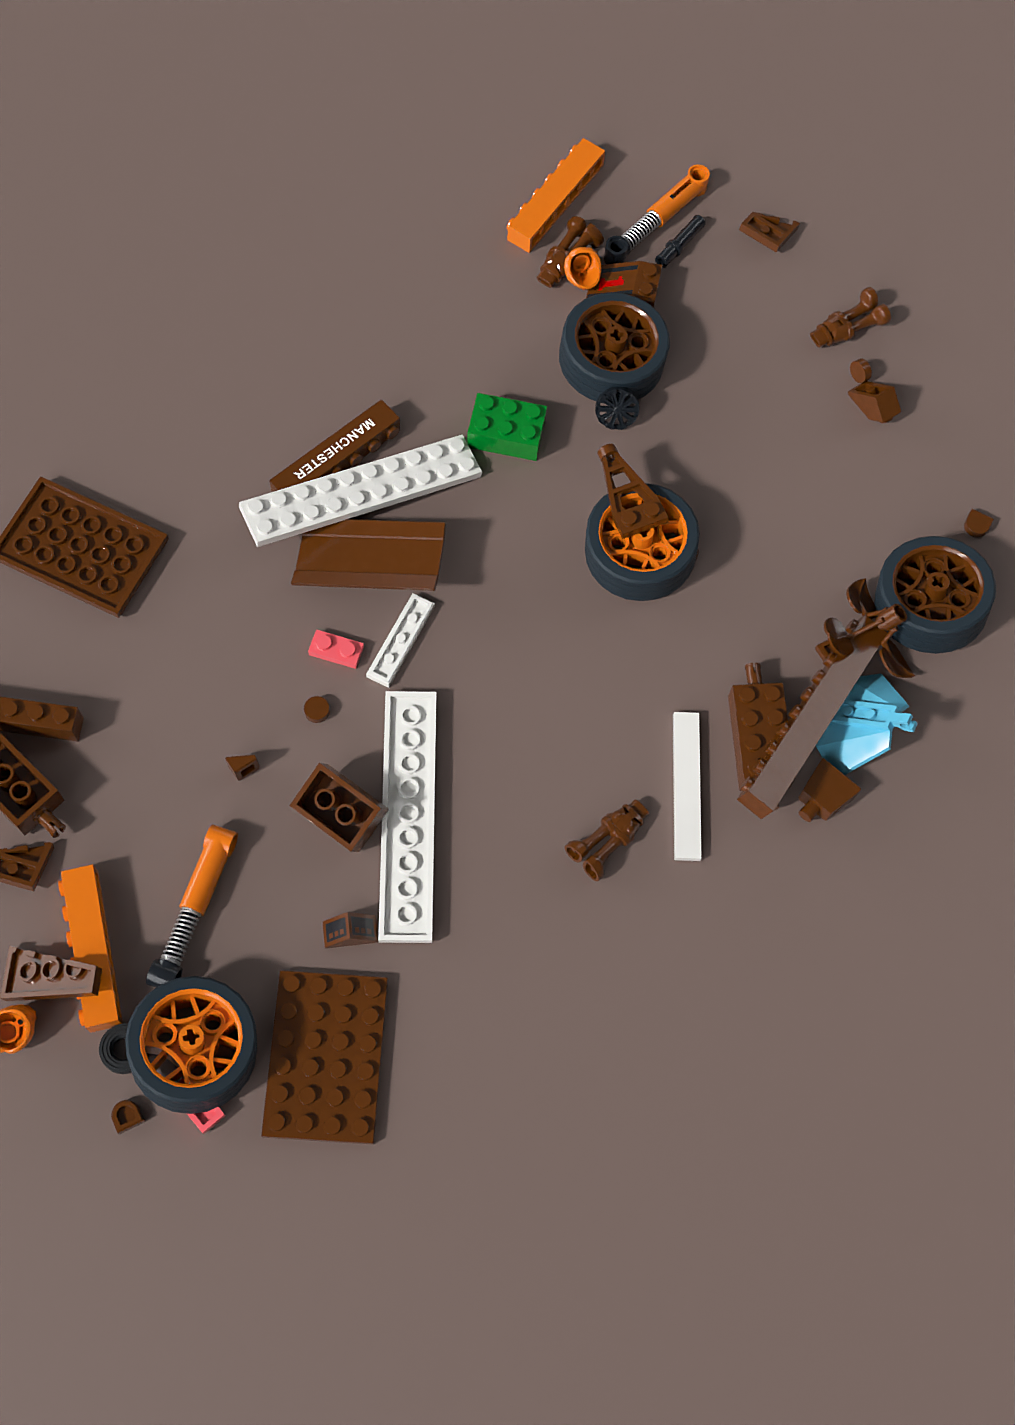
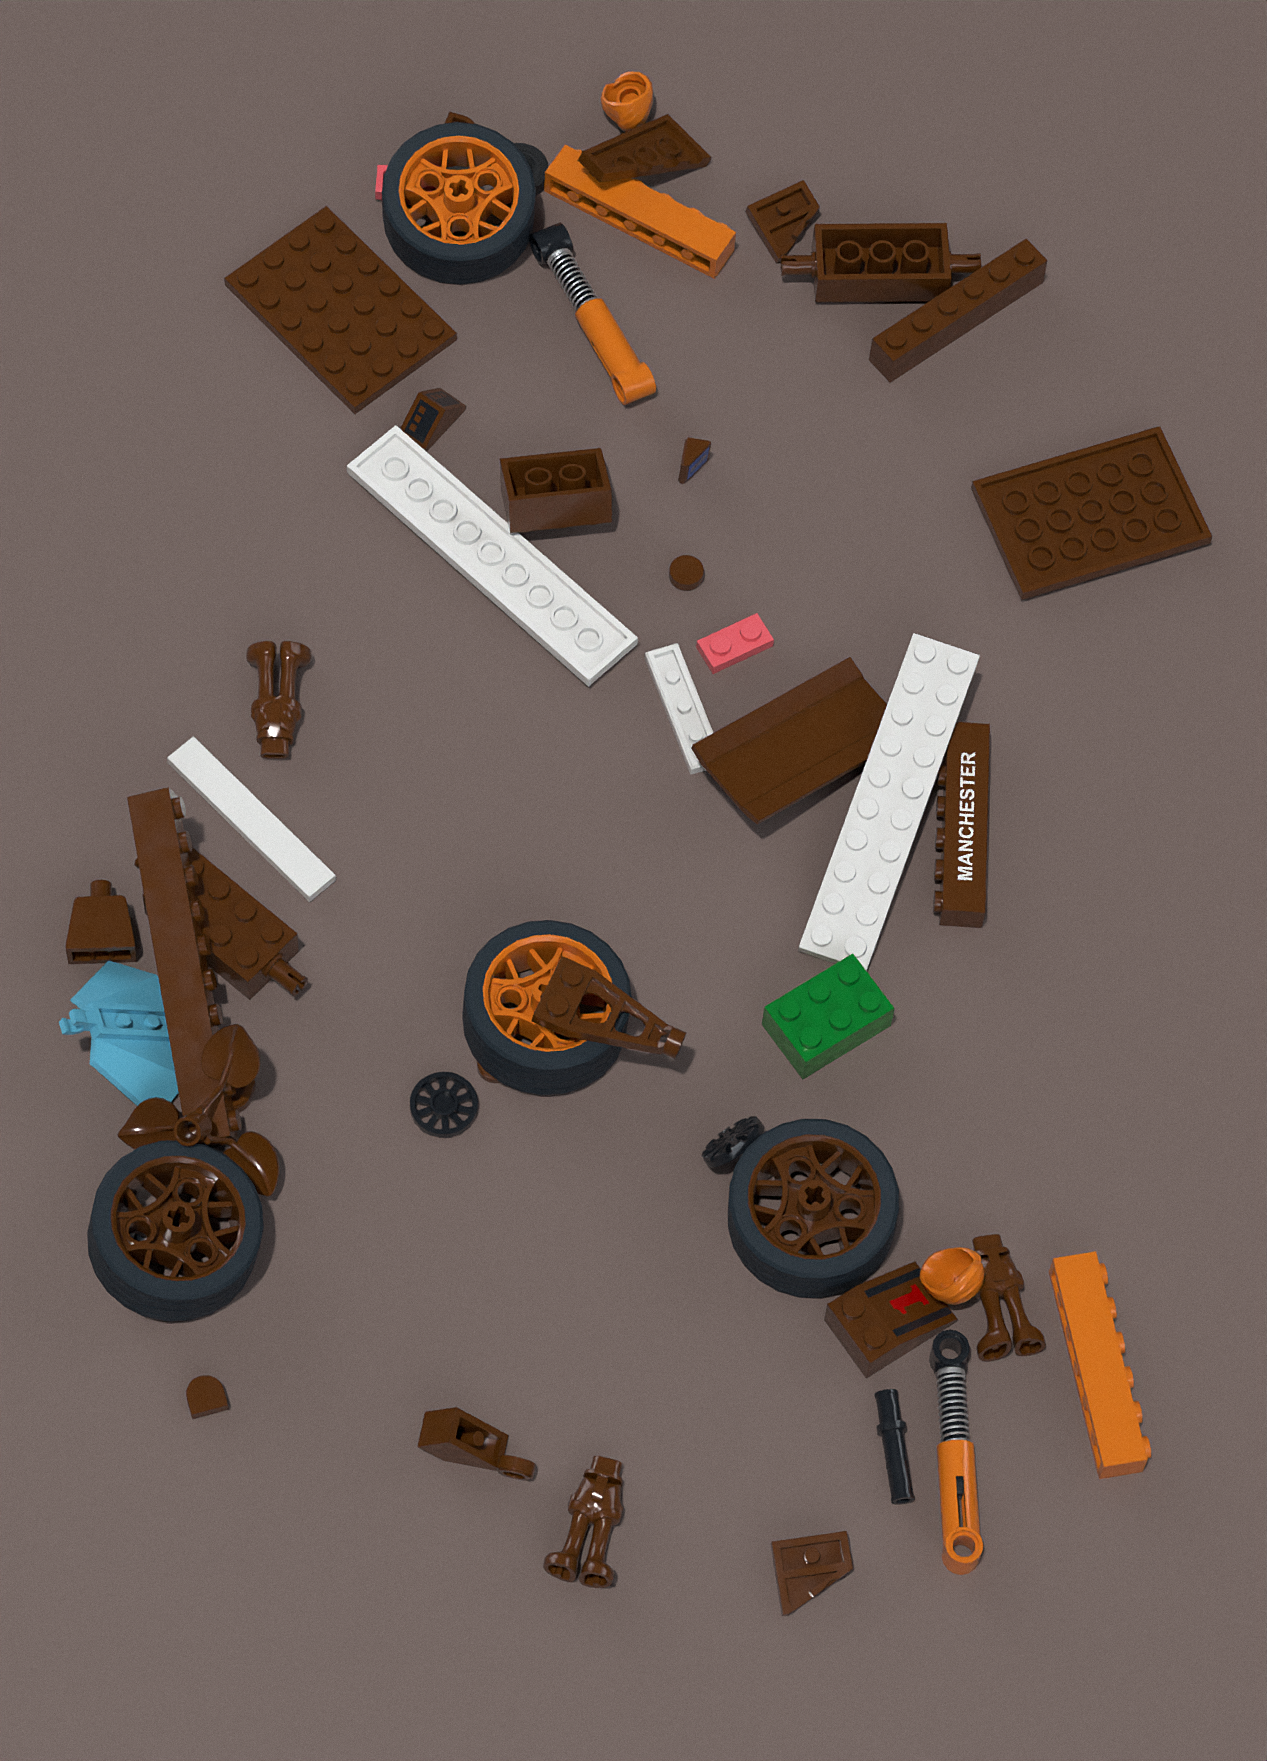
camera: 135 degrees right, 5 degrees down
(731, 555) = (443, 1104): none -> black wheel

